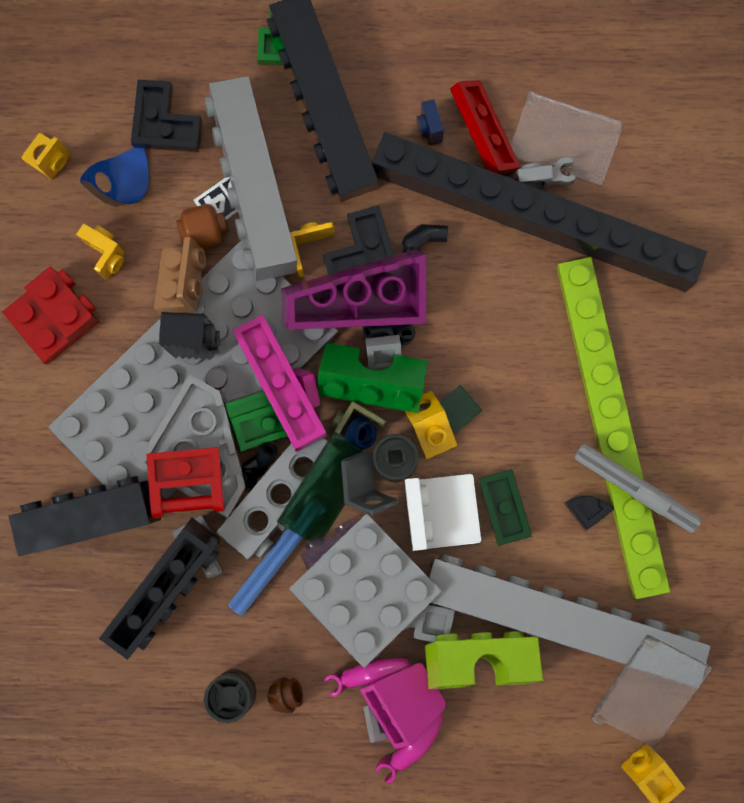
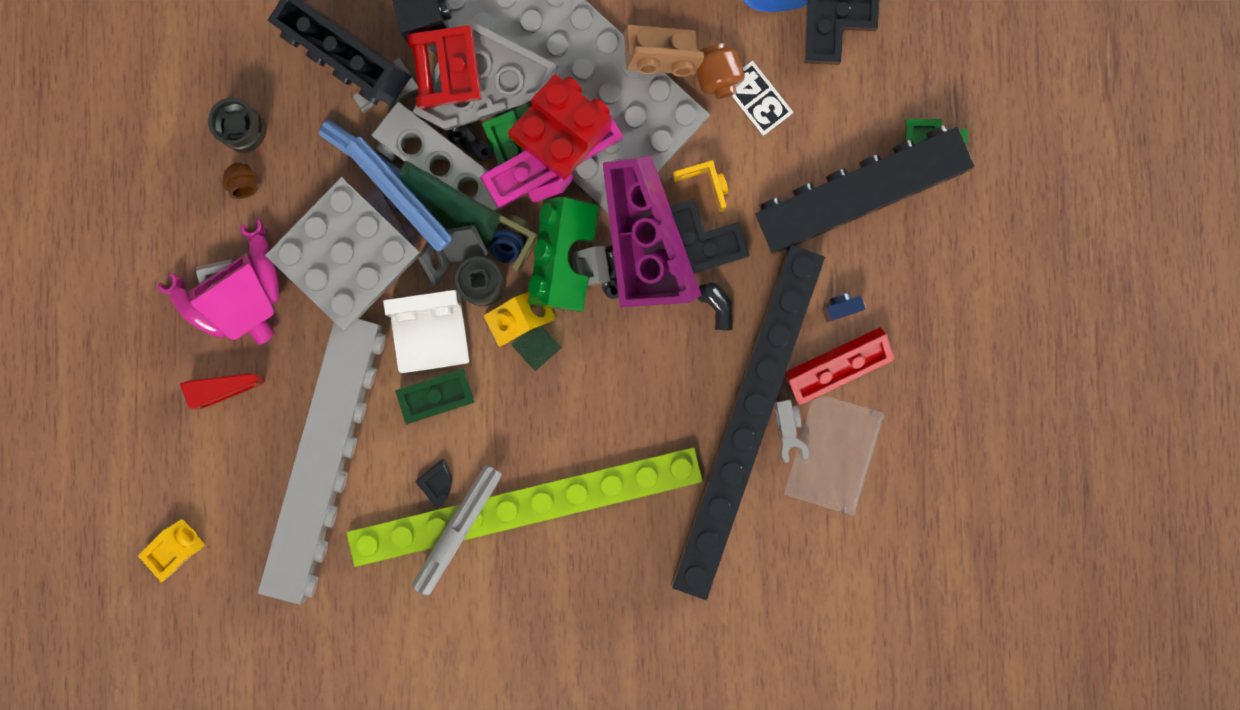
camera: 80 degrees right, 5 degrees up
(188, 335) = (594, 61): black brick -> none
(249, 369) = (561, 125): none -> red plate
(252, 179) = (772, 119): light grey brick -> none
(307, 533) = (399, 194): none -> medium blue axle
(432, 622) = (313, 326): light grey plate -> none
(494, 731) = (210, 391): none -> red slope
(512, 658) = (275, 344): lime arch -> none
(651, 691) = (253, 545): clear piece -> none

